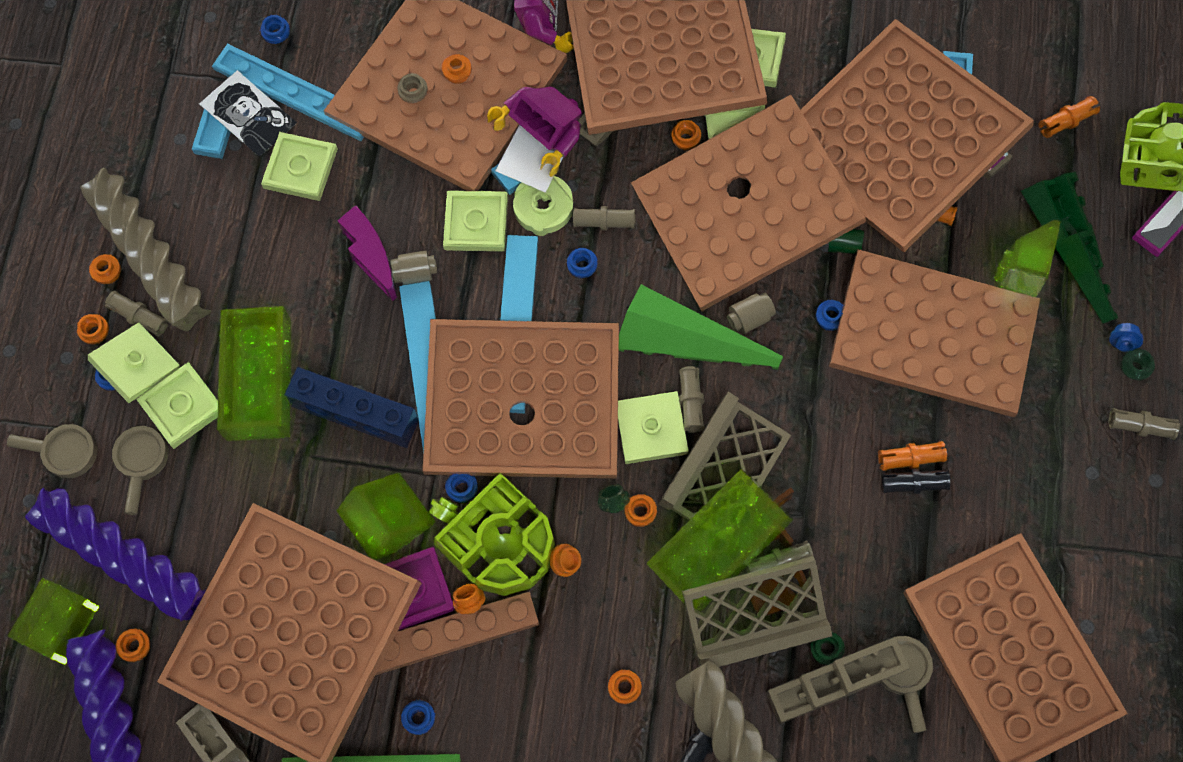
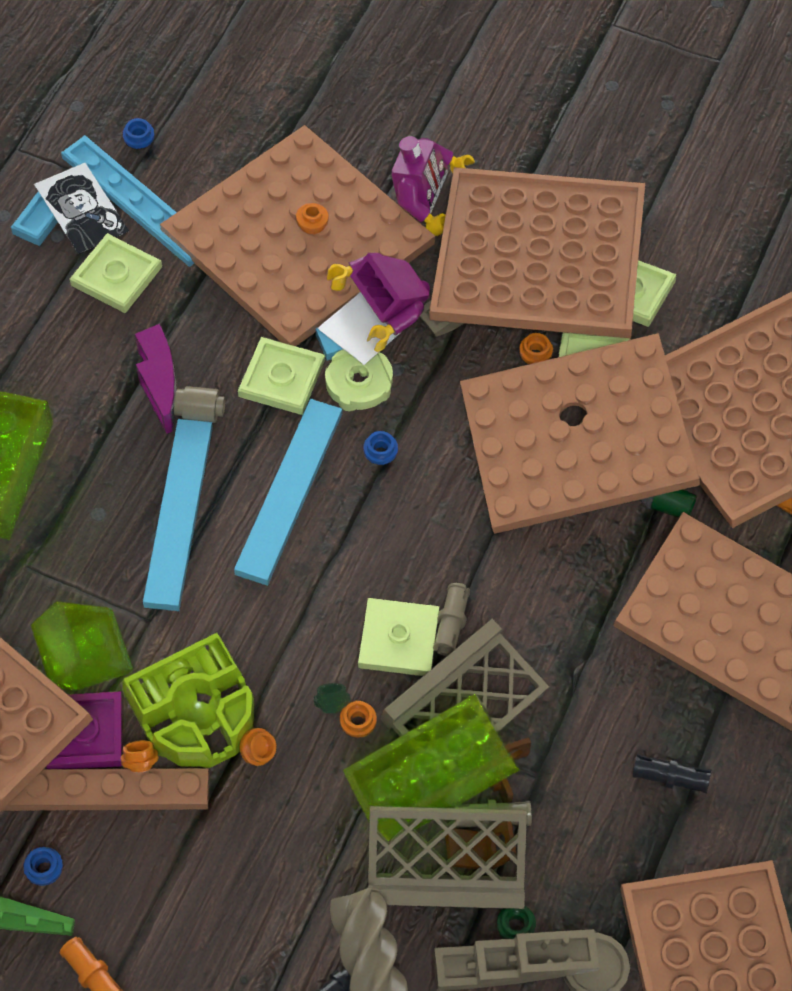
camera: 10 degrees right, 10 degrees down
(352, 407) = (85, 526): dark blue brick -> none
(412, 81) = (256, 218): dark tan plate -> none
(444, 509) = (145, 655): lime plate -> none
(461, 497) = (170, 631): blue plate -> none
(554, 367) = (245, 524): nougat plate -> none
(604, 218) = (419, 409): dark tan pin -> none
(624, 676) = (278, 888): orange plate -> none
(669, 328) = (448, 536): bright green wedge -> none
(751, 313) = (545, 547): dark tan brick -> none
(824, 320) = (626, 580): blue plate -> none
(912, 455) = (677, 745): orange pin -> none

